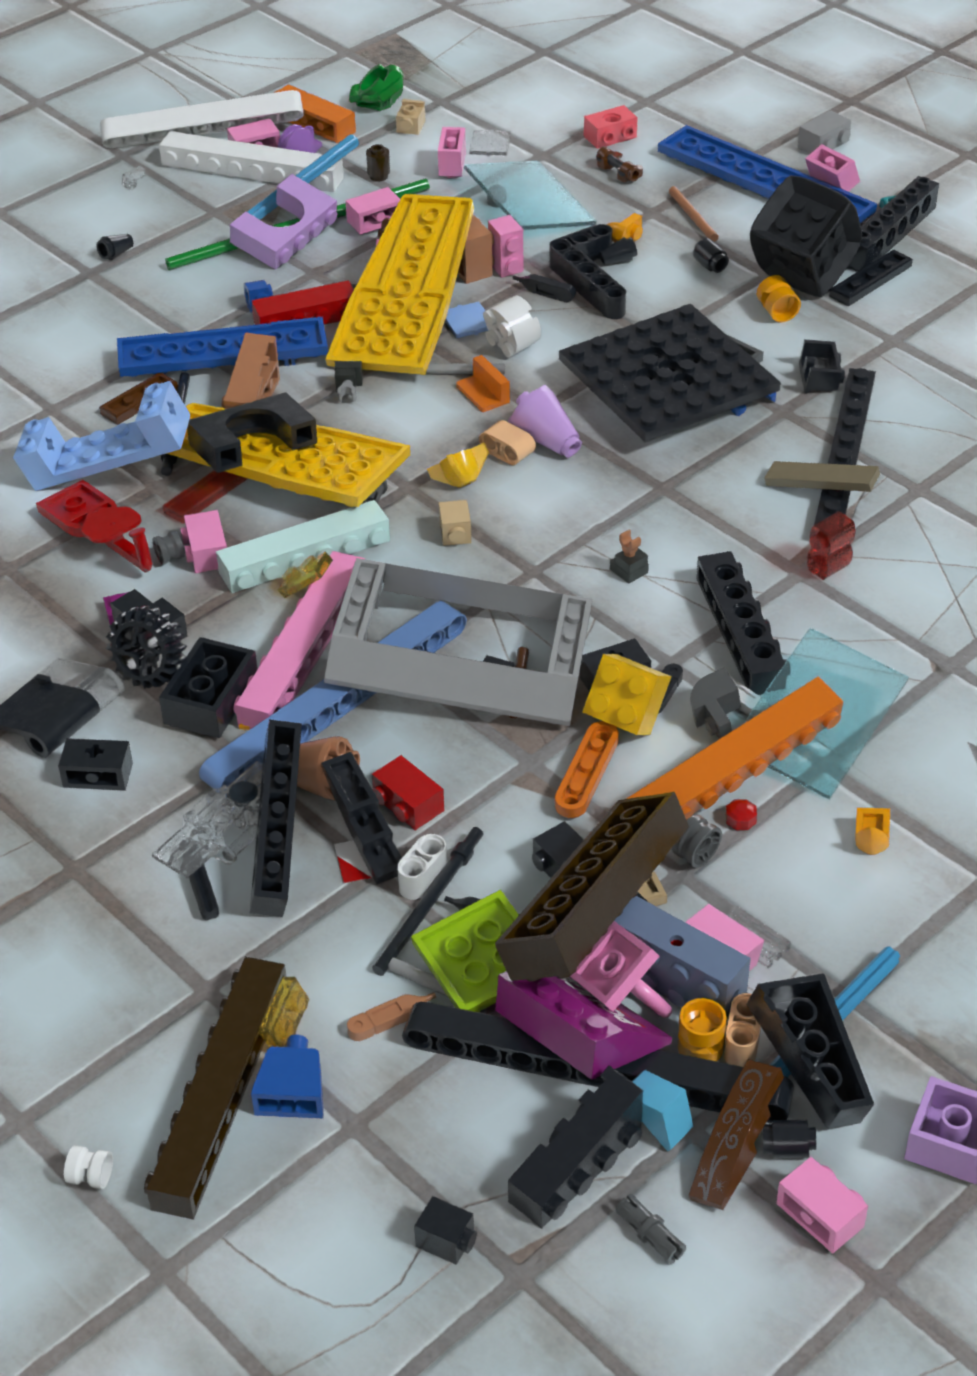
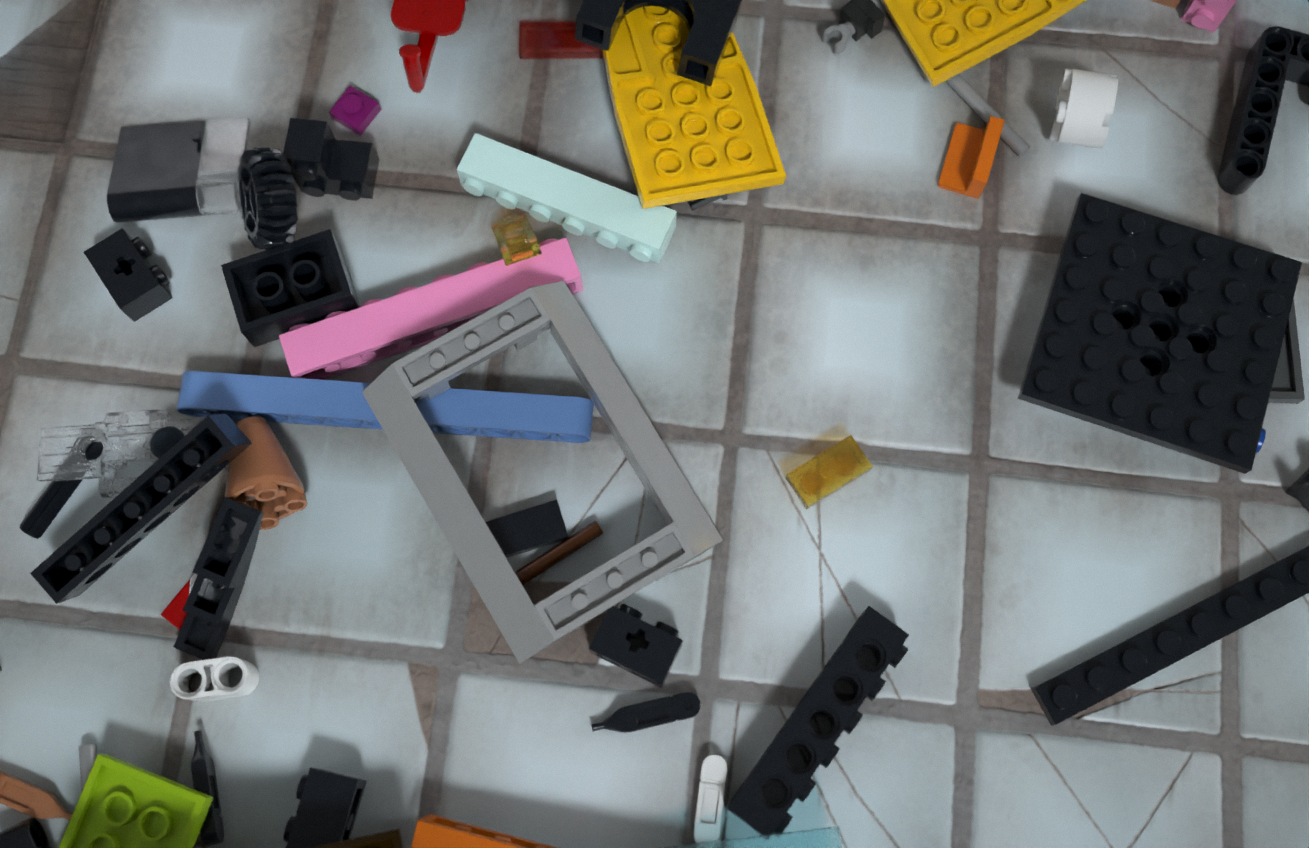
camera: 50 degrees right, 30 degrees up
(168, 547) = (461, 80): dark grey wheel -> none
(205, 537) = (498, 103): bright pink brick -> none
(408, 792) = (301, 584): red brick -> none
(455, 522) = (724, 309): tan brick -> none
(459, 857) = (264, 699): black bar -> none
(460, 468) = (811, 245): yellow piece -> none
(466, 320) = (1073, 45): light blue piece -> none
(507, 442) = (898, 256): light nougat beam -> none
(546, 421) = (957, 273): lavender cone -> none
(547, 287) = (1203, 82): black piece -> none
(586, 769) = (470, 730): orange plate -> none
(601, 539) = (828, 472): none -> clear yellow plate
(626, 694) = (584, 701): yellow brick -> none
(631, 561) = (817, 530): pearl dark grey piece -> none
(712, 700) = (657, 787): dark grey brick -> none
(822, 476) = (1135, 636): dark tan tile -> none
(831, 545) = (1013, 738): clear red brick -> none

